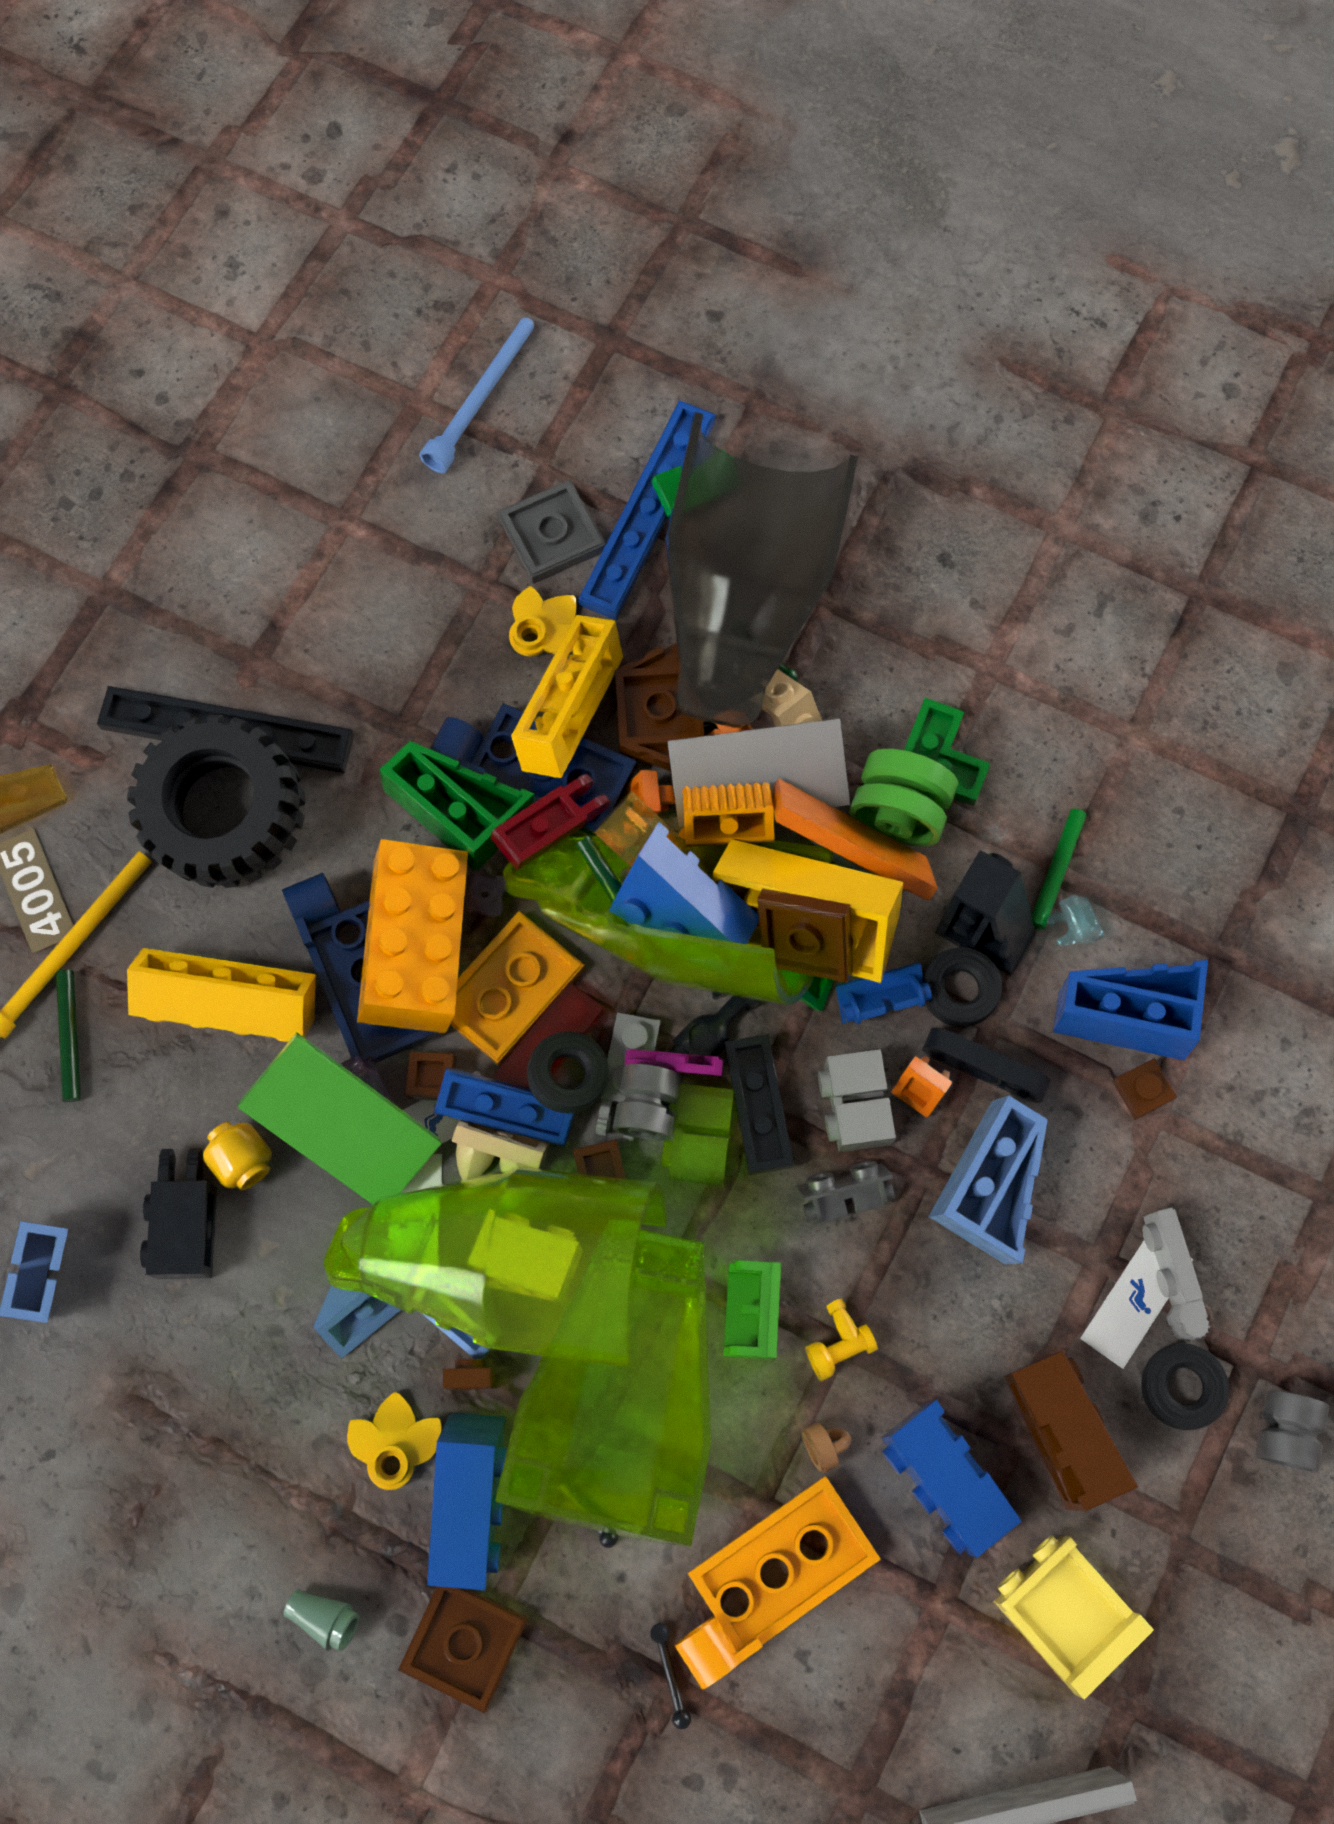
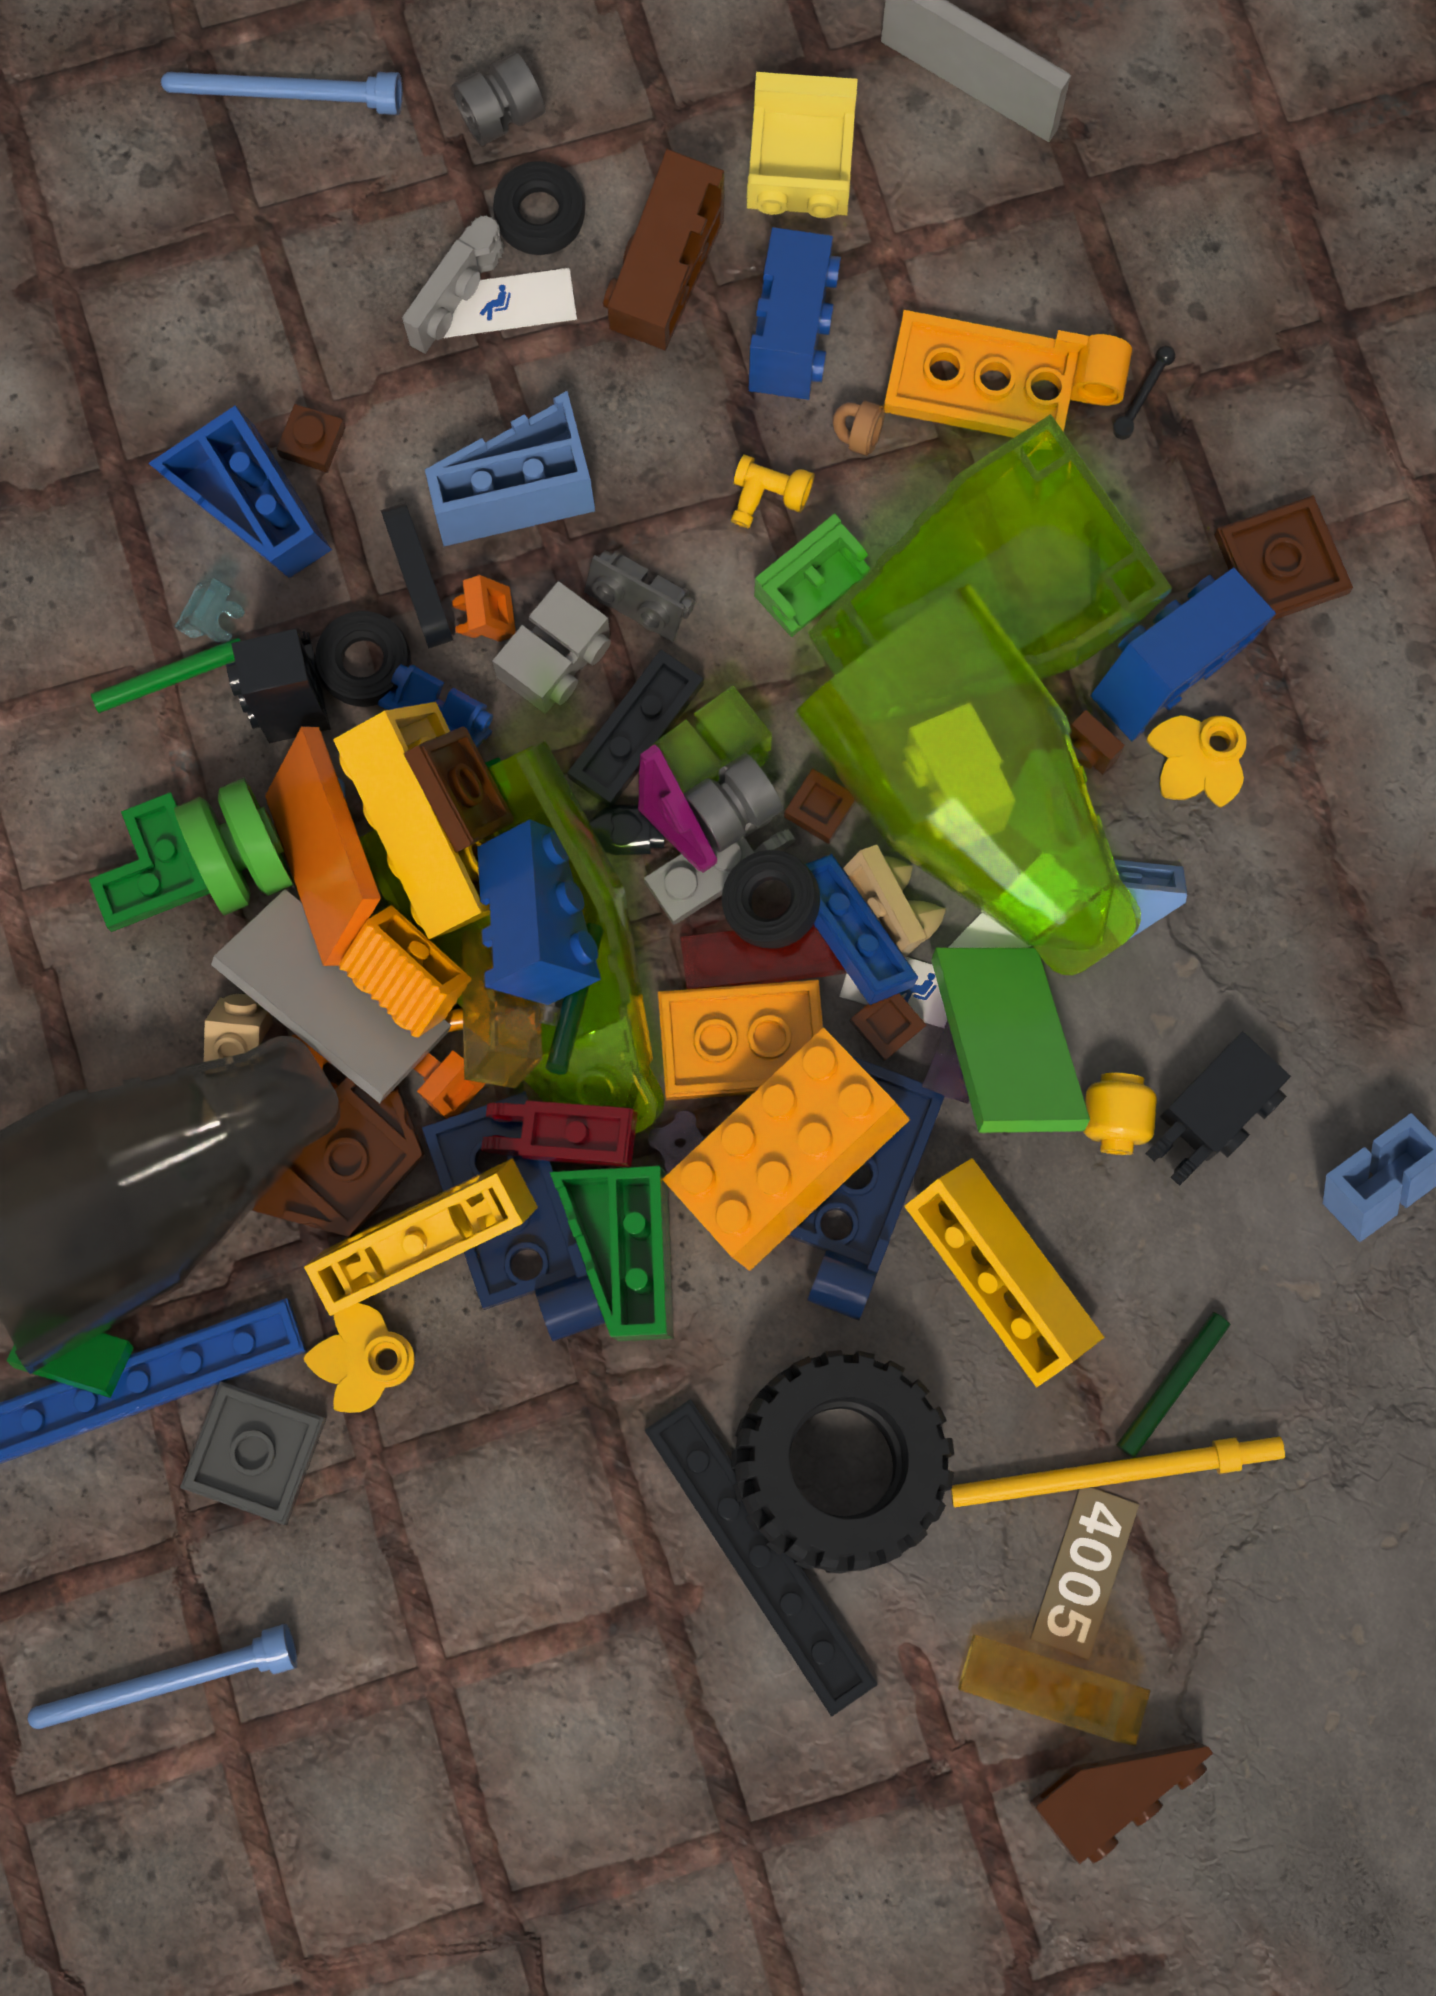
camera: 135 degrees left, 5 degrees up
(324, 1619) = (1379, 677): sand green cone -> none

